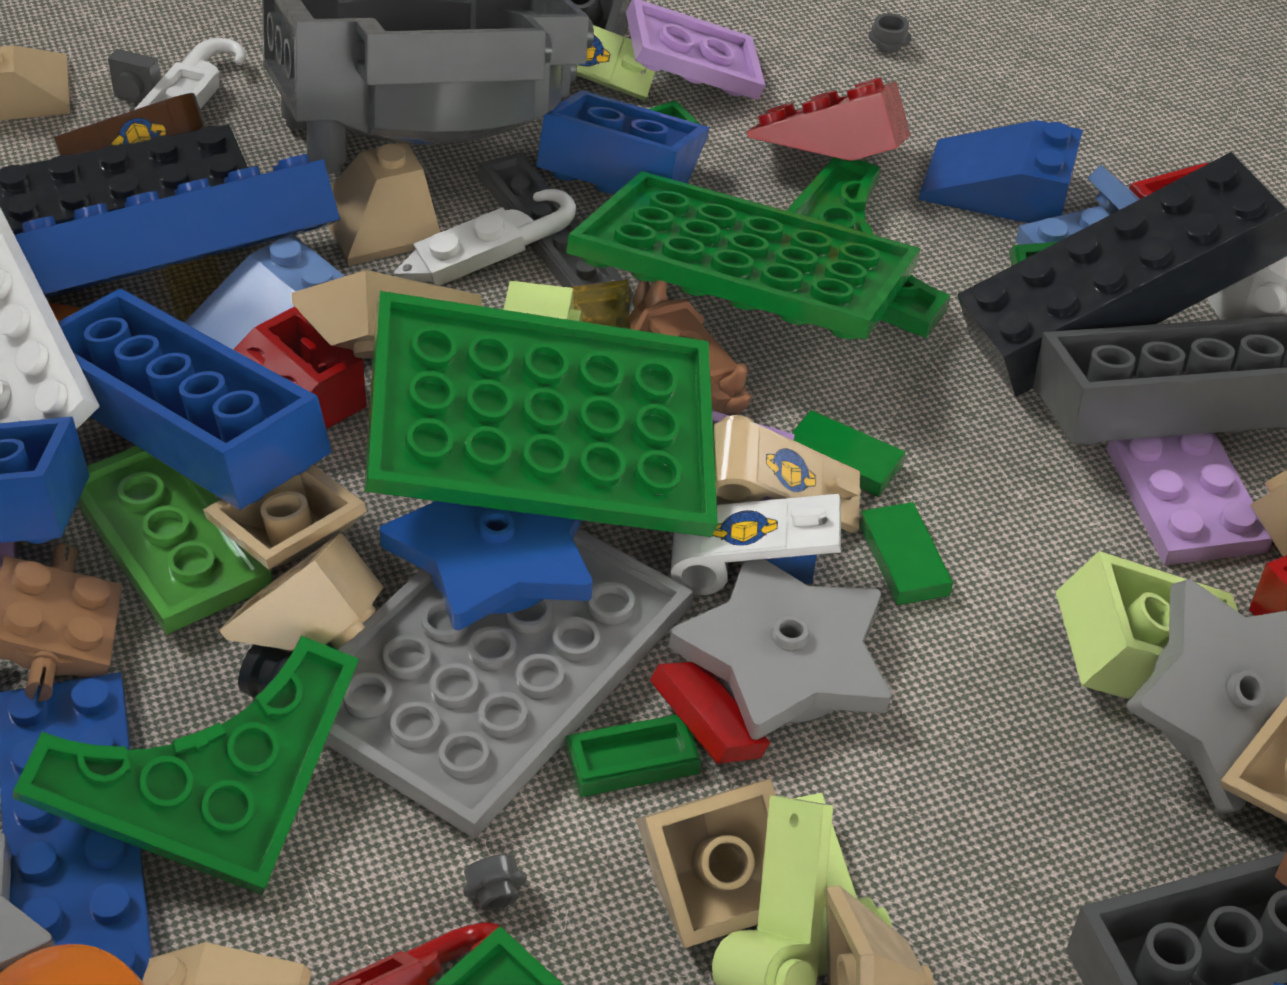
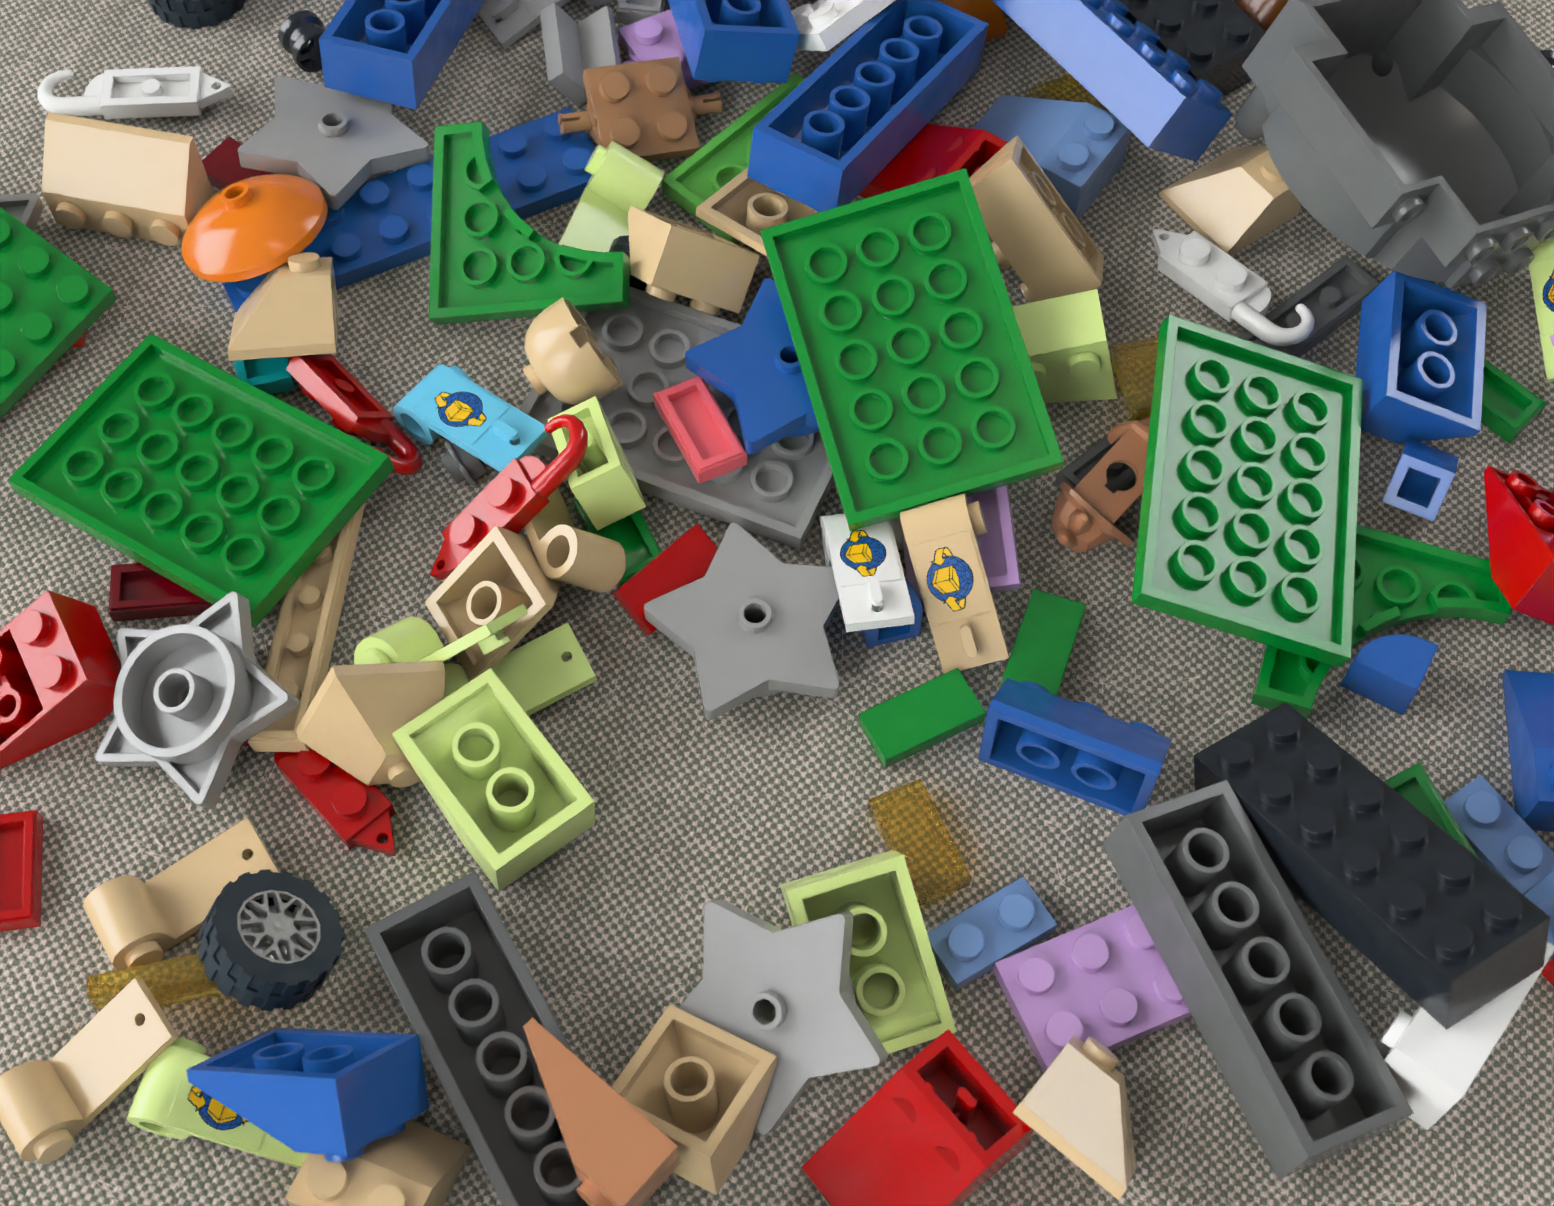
camera: 80 degrees right, 15 degrees up
(156, 662) = (615, 184): none -> yellowish green door
(417, 875) = (469, 417): none -> medium azure door
(420, 718) = (567, 357): none -> tan cylinder
(536, 641) = (700, 429): none -> coral tile
(567, 725) = (604, 477): none -> yellowish green slope
(602, 814) = (511, 497): none -> plate
(686, 771) = (572, 553): none -> tan door
(735, 175) = (1420, 479): none -> blue brick
(930, 233) = (1390, 670): none -> blue brick
(965, 881) = (496, 779): none -> yellowish green slope
(968, 441) = (1072, 747): none -> blue slope
(1026, 581) = (915, 829): none -> clear yellow tile
(1128, 535) = (990, 932): none -> medium blue plate

